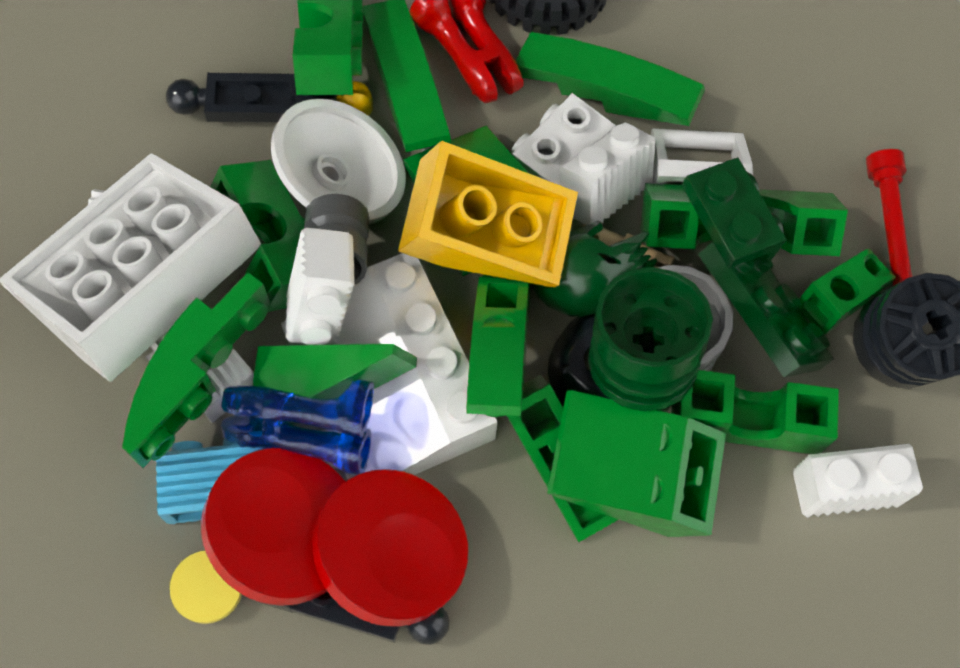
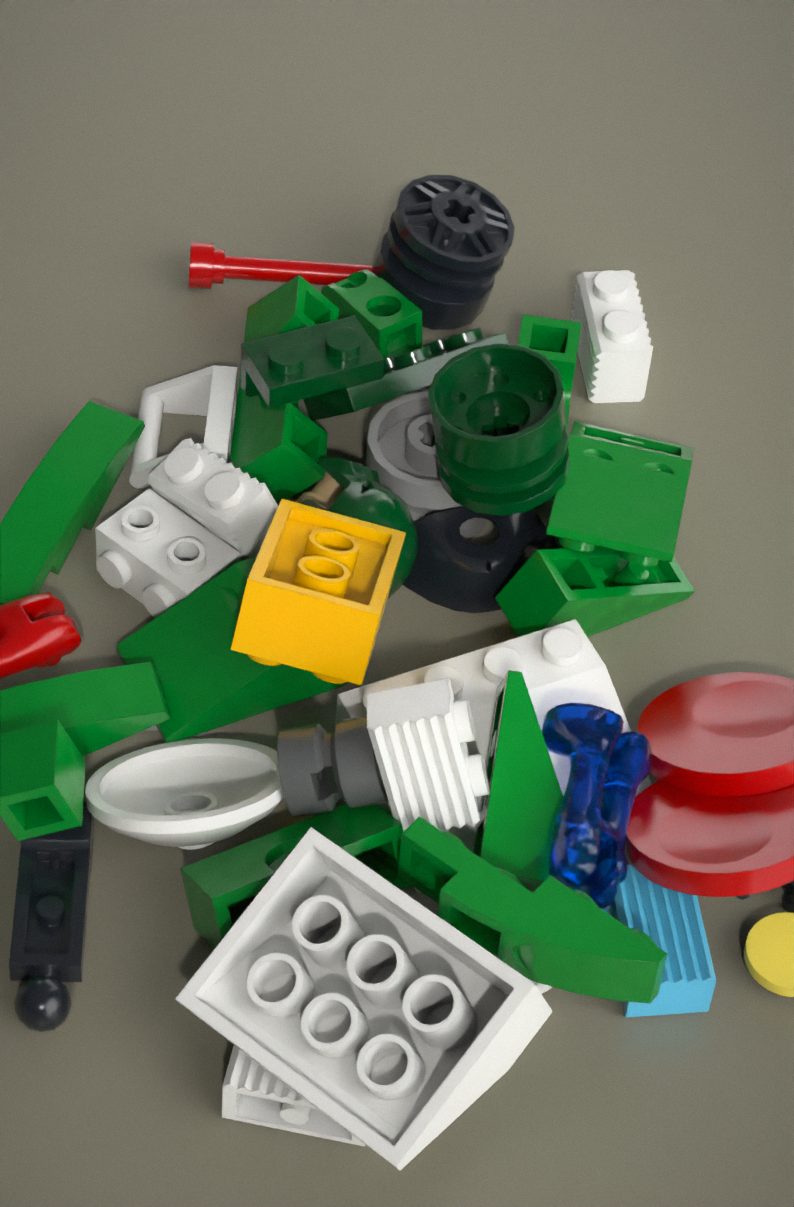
camera: 90 degrees left, 20 degrees down
(498, 347) = (482, 599): green slope -> none

